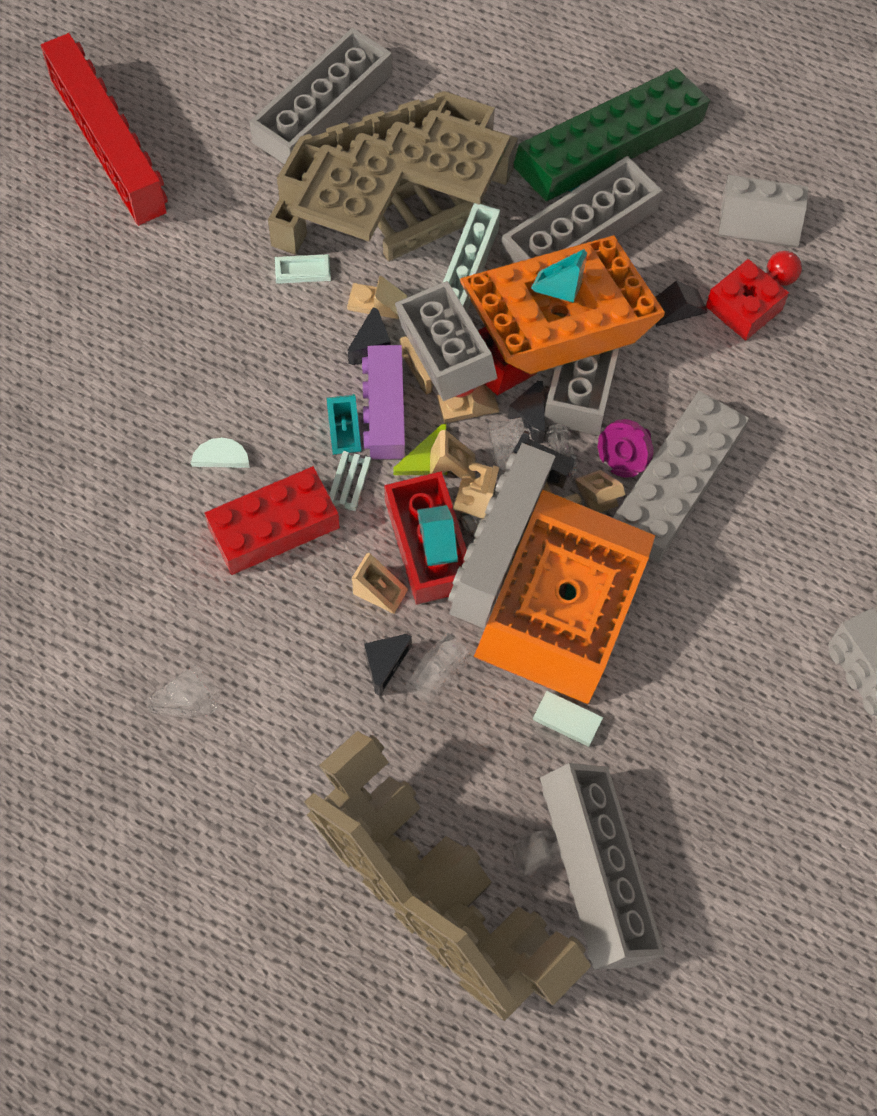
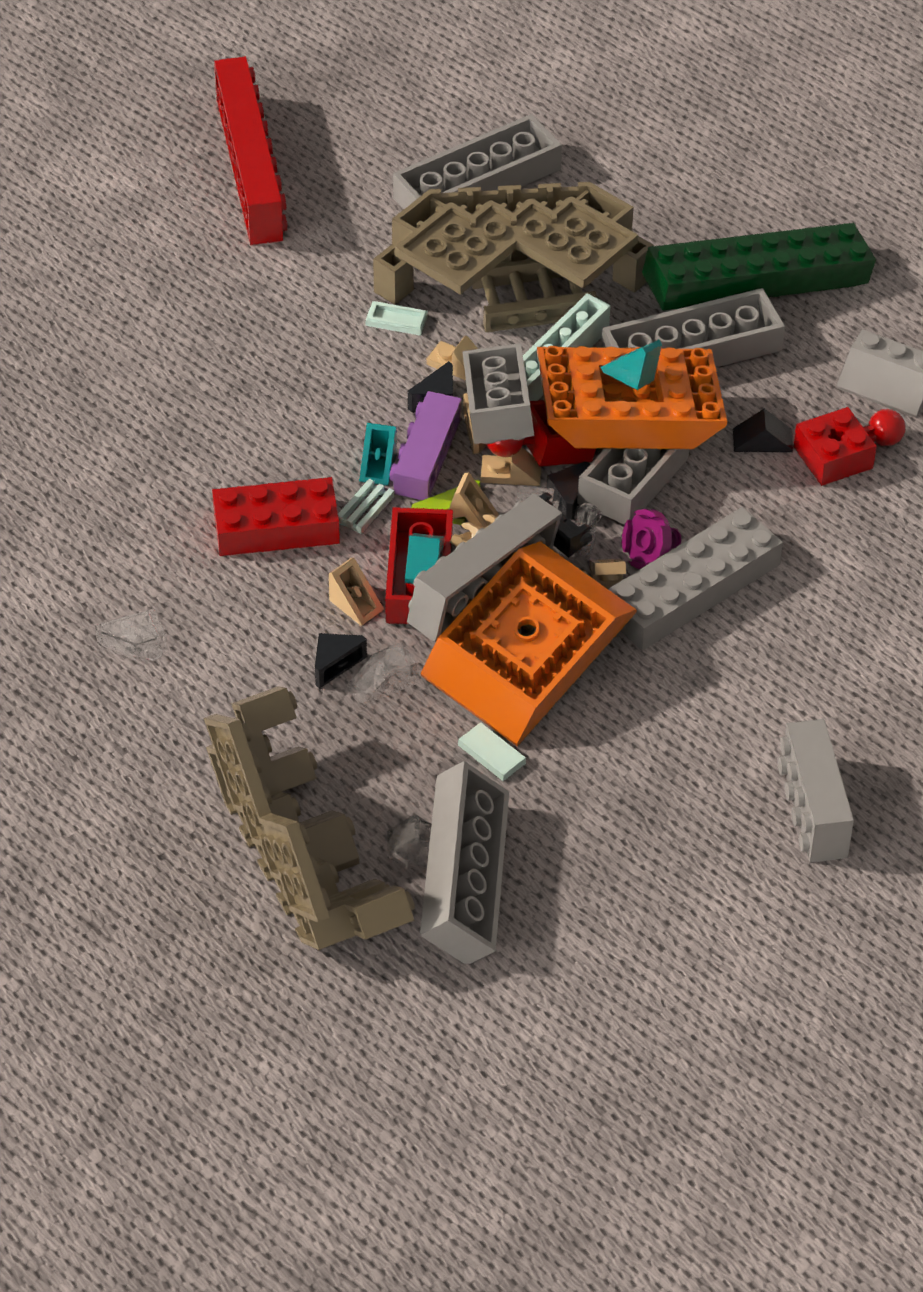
camera: 20 degrees right, 15 degrees down
(220, 453) = (249, 453): light aqua tile -> none

